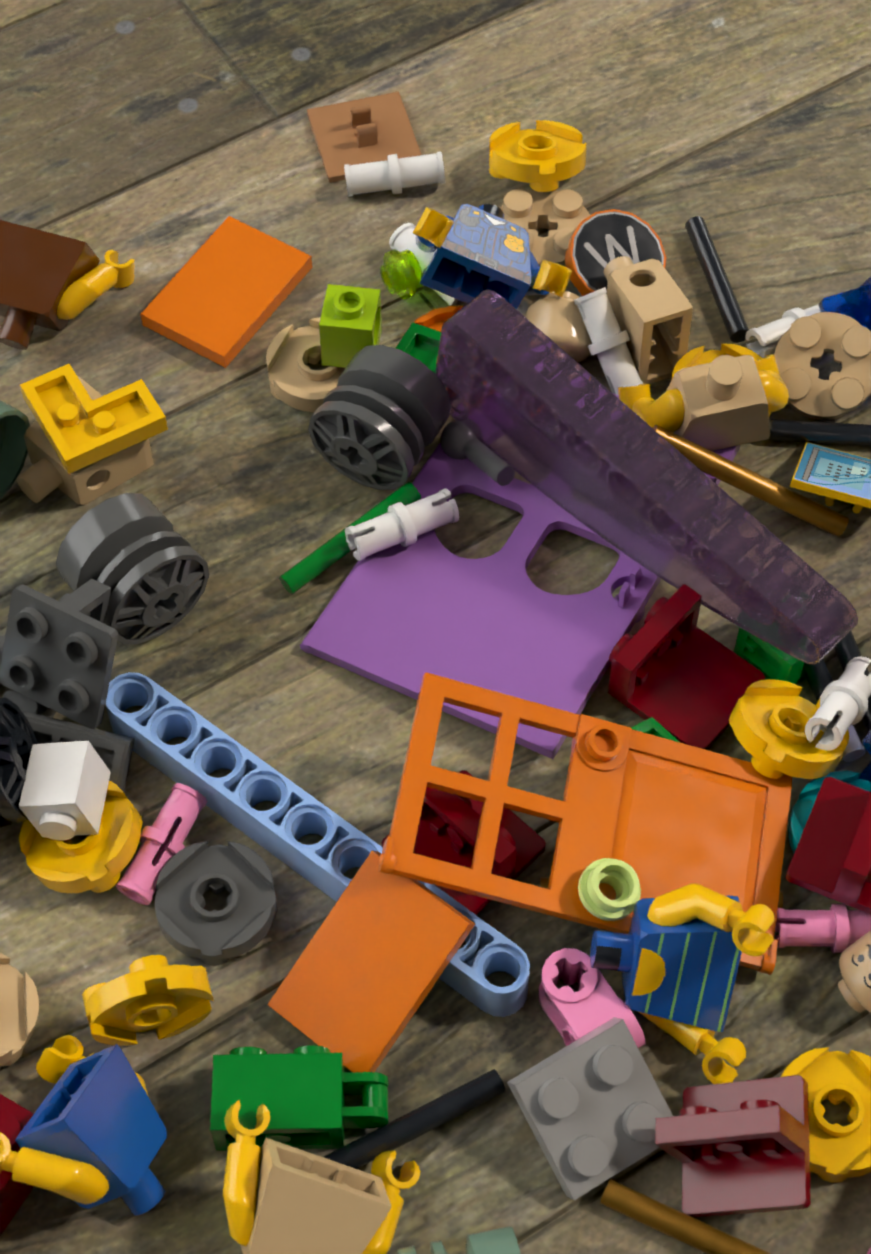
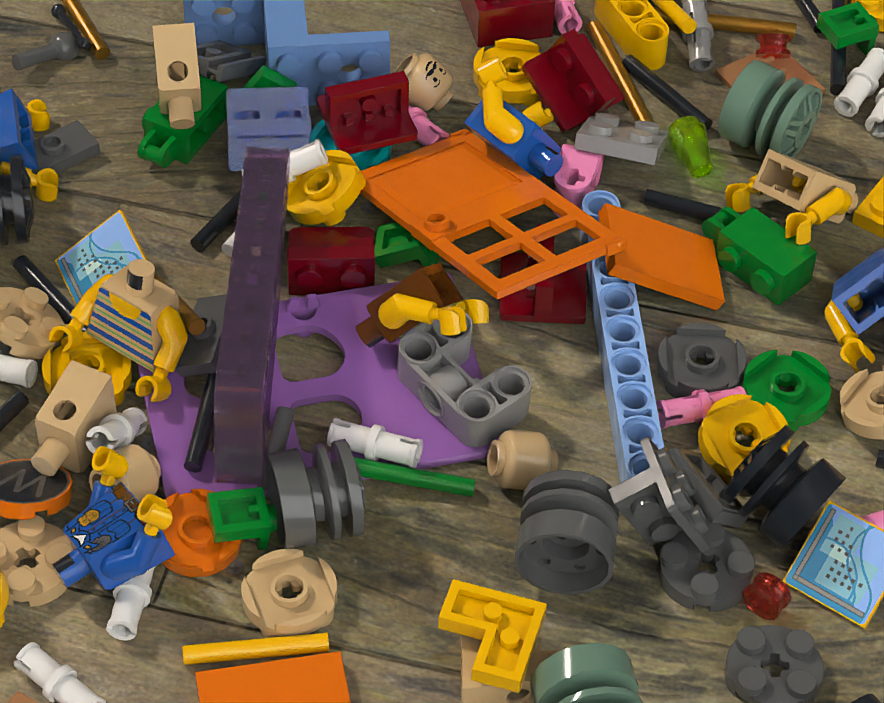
camera: 135 degrees left, 10 degrees down
(65, 789) = (736, 434): white brick -> none
(77, 924) = (800, 370): none -> green plate
(148, 999) = (778, 304): yellow plate -> none
(263, 628) = (520, 458): none -> tan head
(295, 315) = (255, 648): none -> yellow bar
(348, 323) = (259, 557): lime brick -> none
(393, 620) = (433, 373): none -> light grey beam
(401, 273) = (159, 601): clear neon green plate -> none
(501, 626) = (419, 300): none -> torso
(522, 1198) = (690, 143): none -> clear neon green cone
(620, 877) = (516, 171): yellowish green plate -> none

